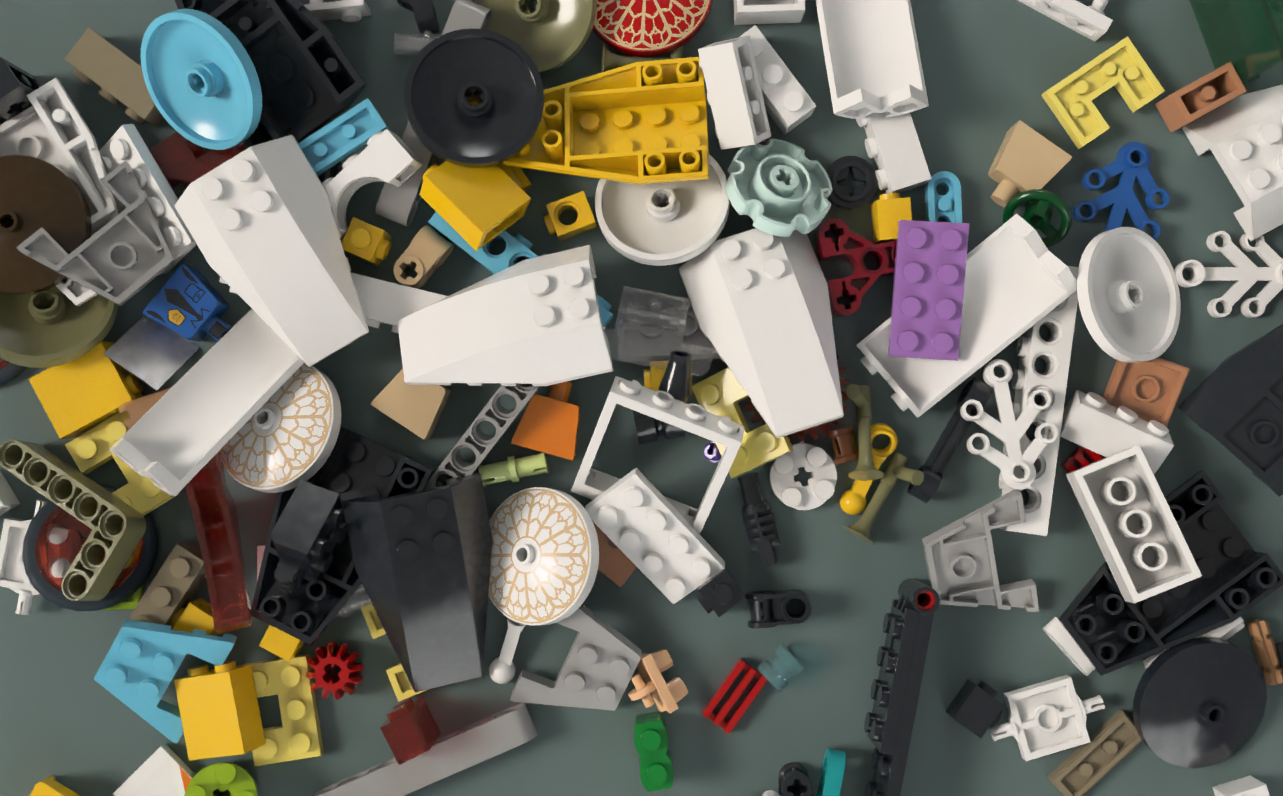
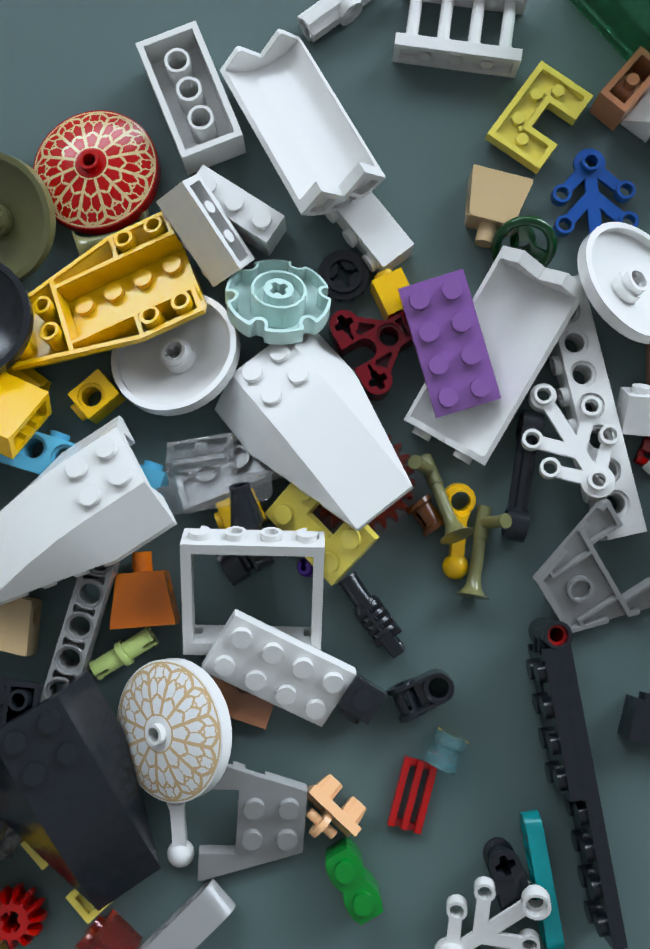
camera: 15 degrees left, 5 degrees down
(819, 487) = (418, 562): white plate -> none
(946, 206) = (433, 266): medium azure plate -> none

